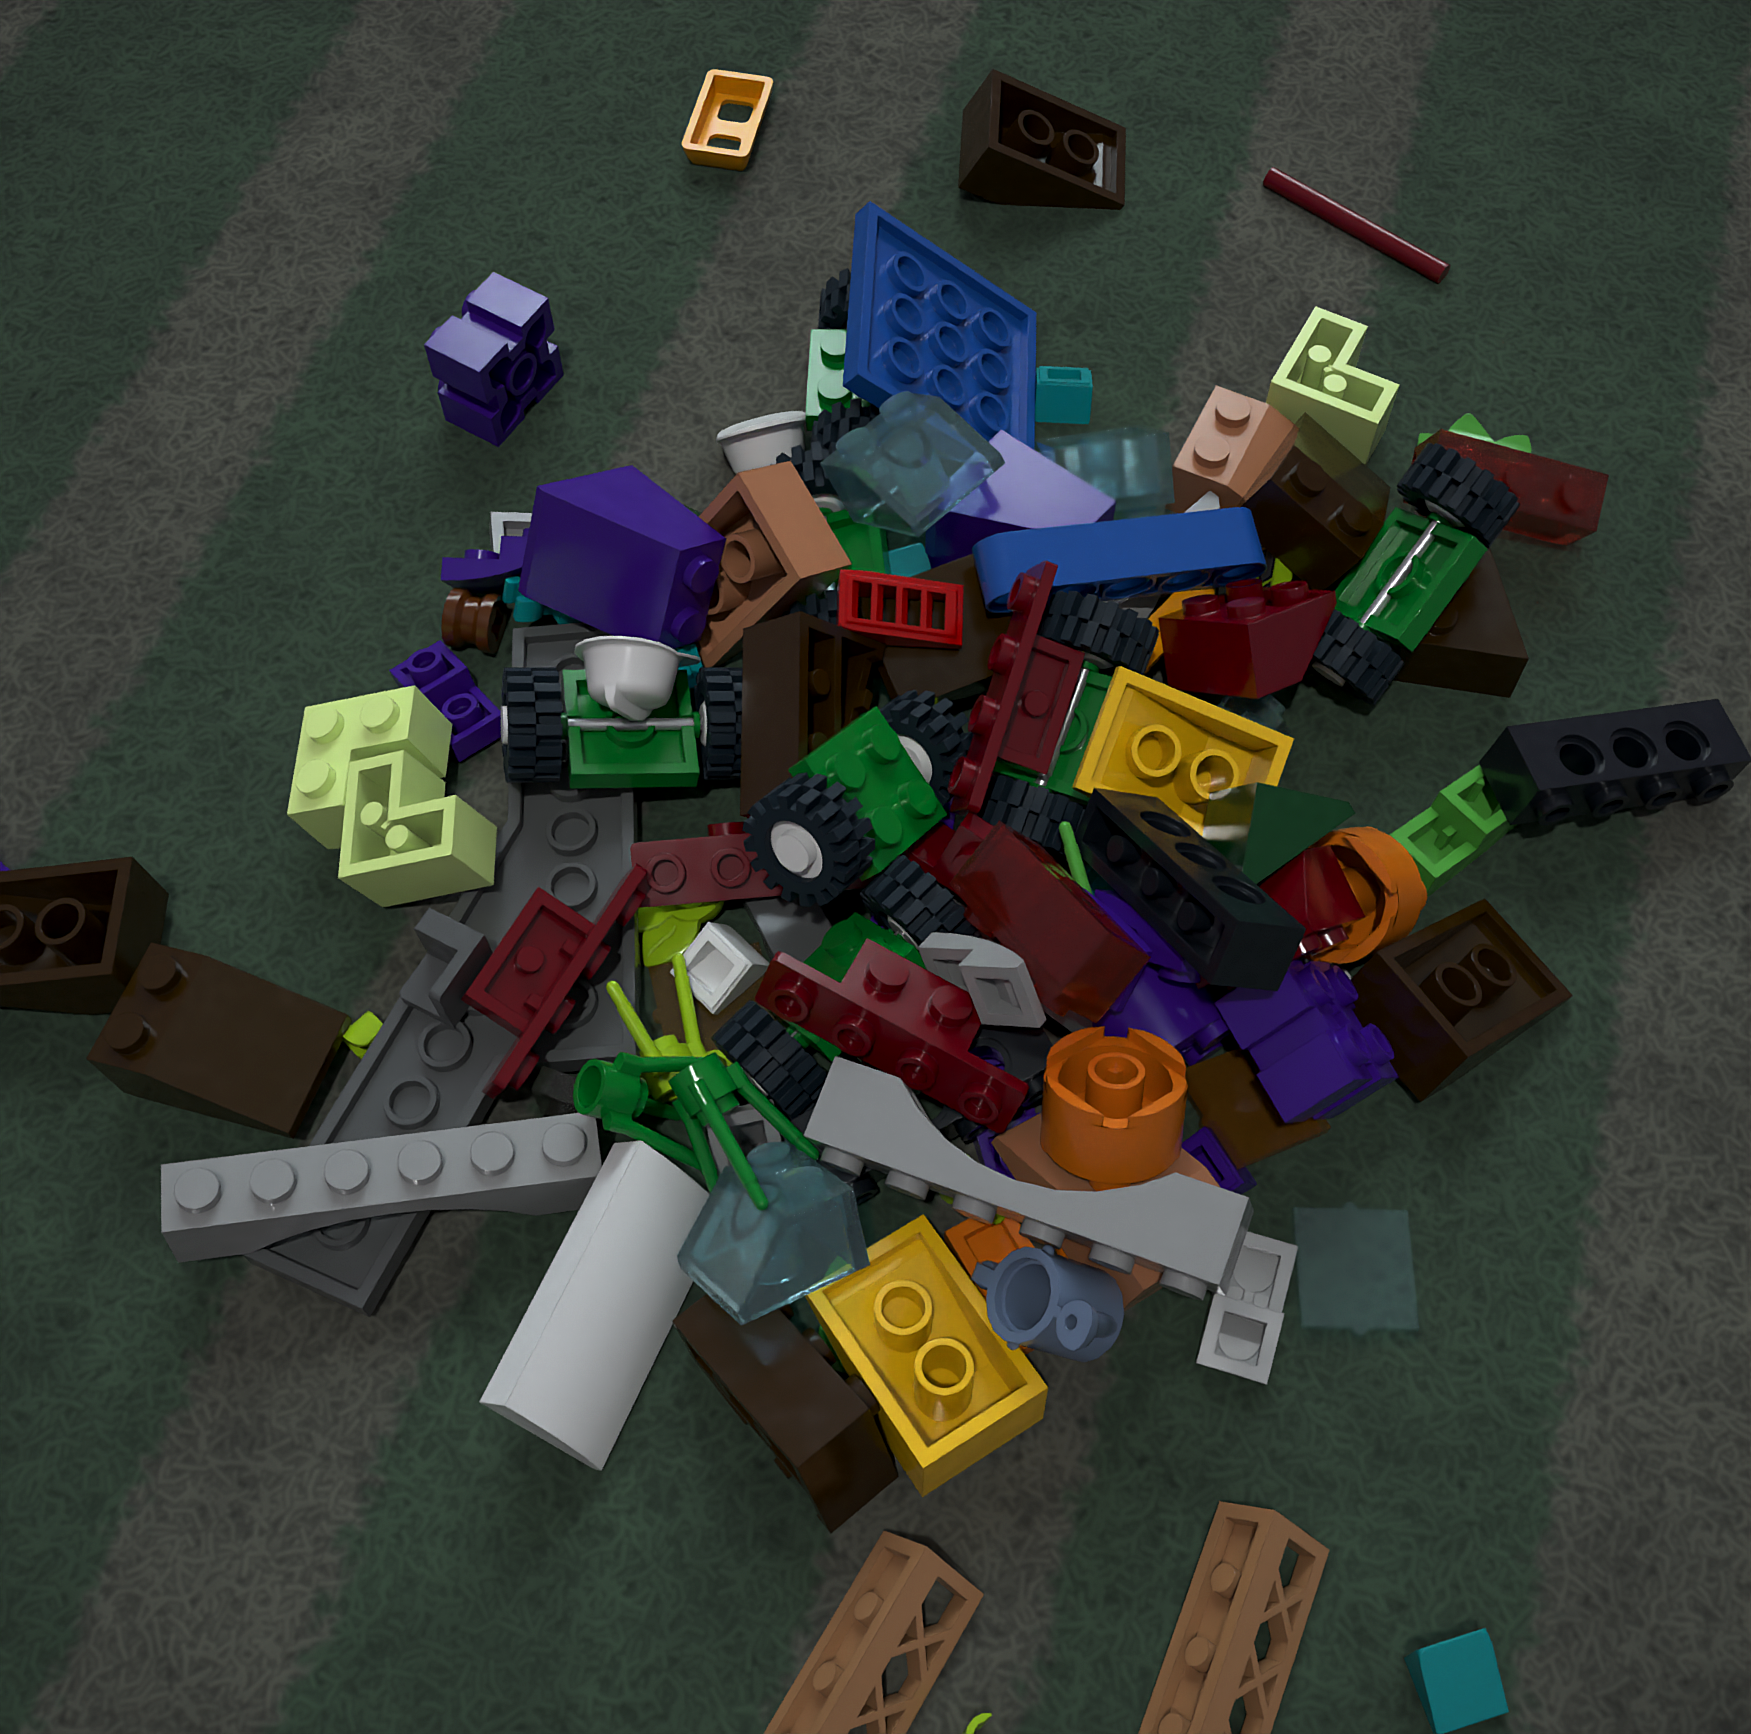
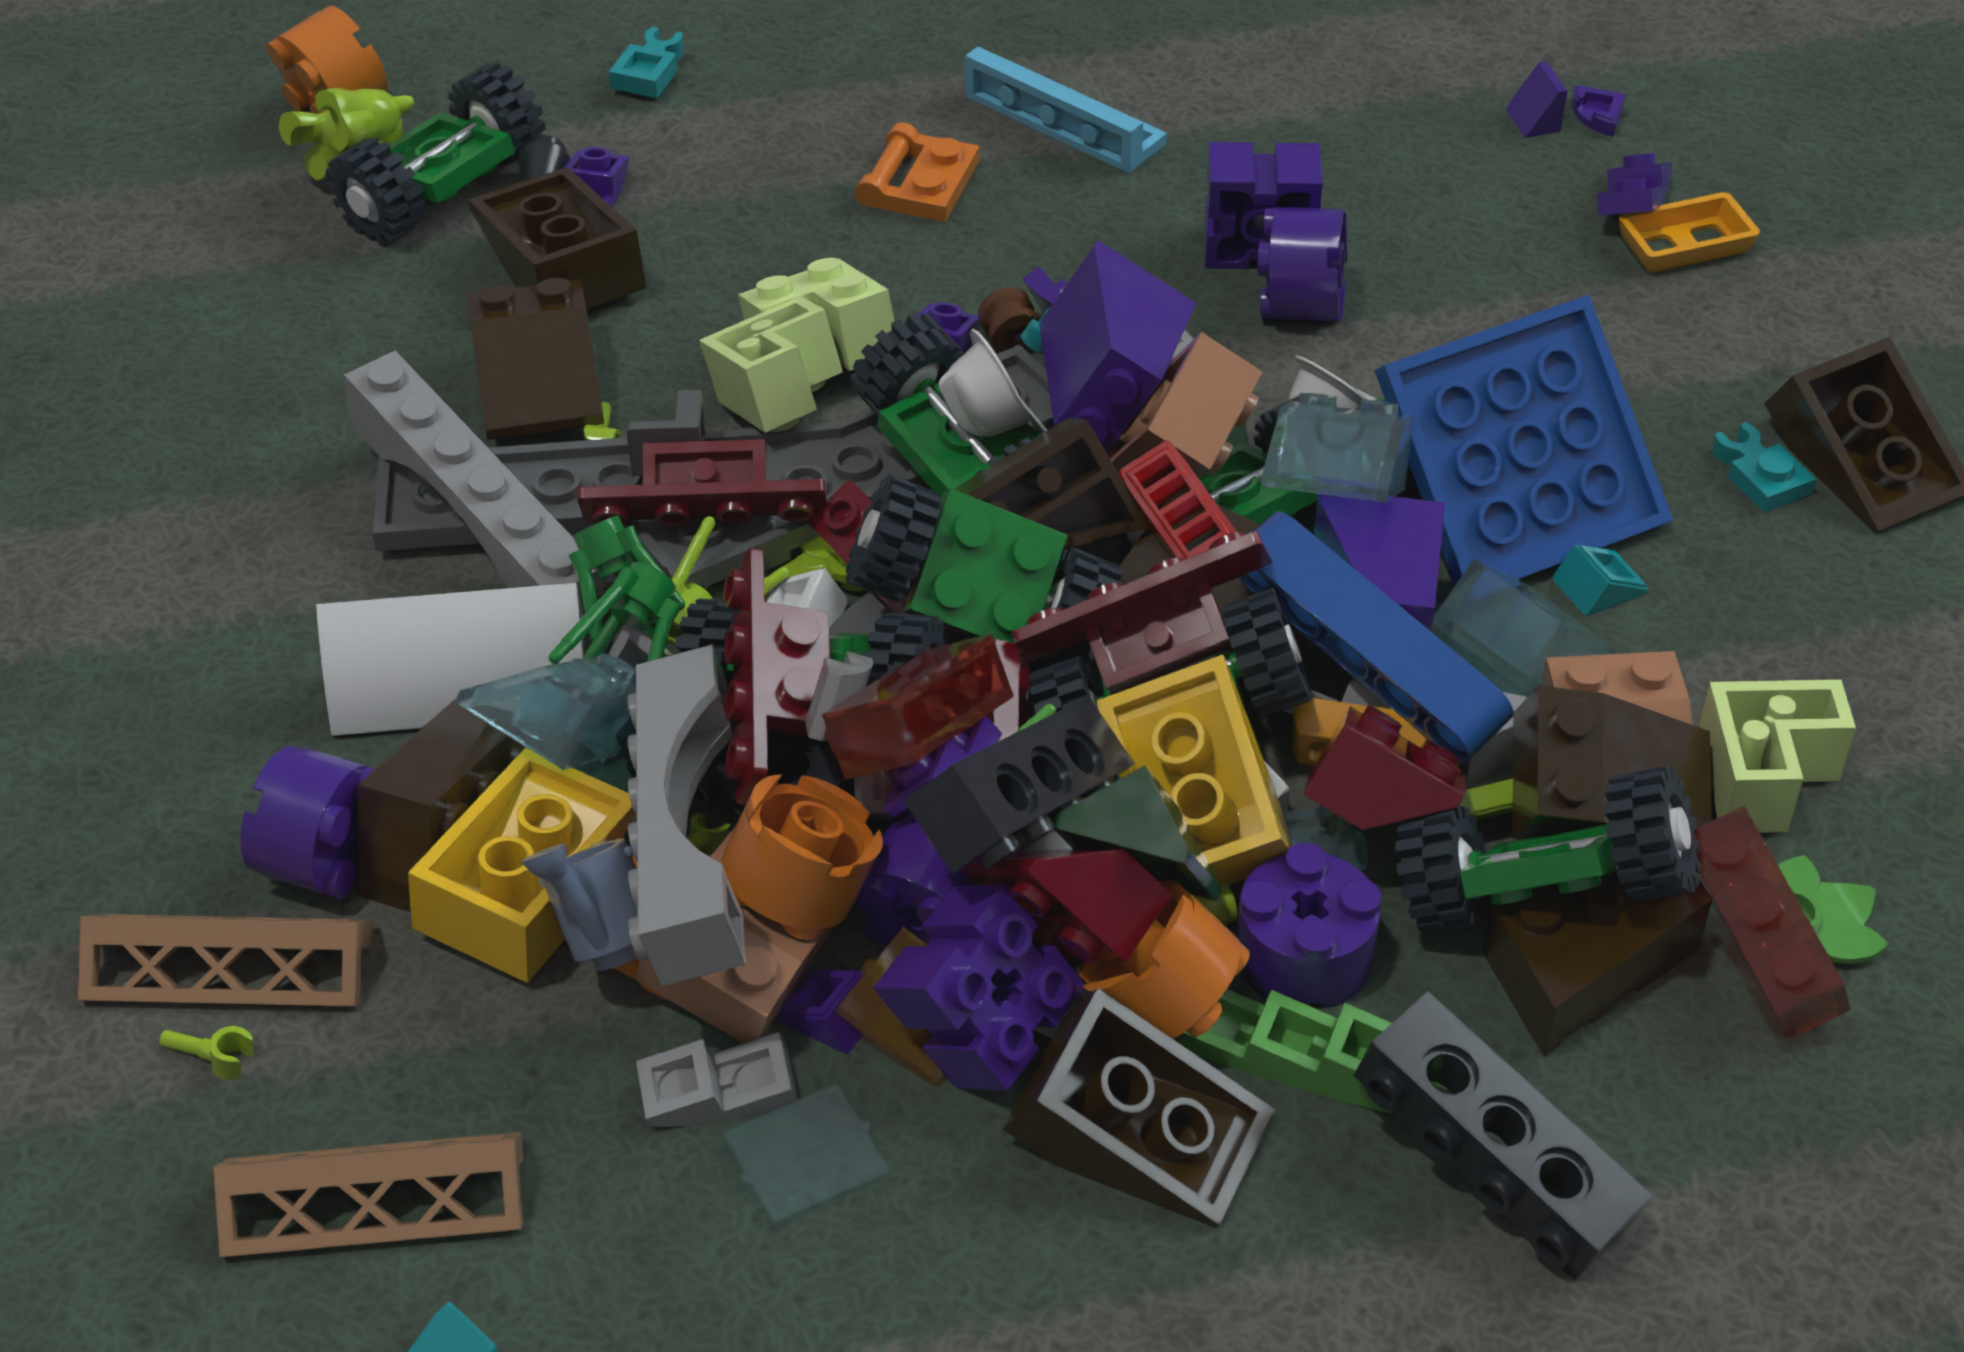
camera: 60 degrees right, 15 degrees down
(204, 438) = (1060, 111): none -> medium azure fence
(207, 576) = (933, 181): none -> orange plate
(498, 116) = (1539, 103): none -> dark purple slope
(529, 85) = (1599, 107): none -> dark purple tile
(591, 370) = (1303, 264): none -> dark purple brick
(655, 118) = (1635, 186): none -> dark purple slope
(766, 1531) = (305, 821): none -> dark purple brick
(1020, 230) = (1764, 474): none -> teal plate
(1346, 758) = (1308, 926): none -> dark purple brick

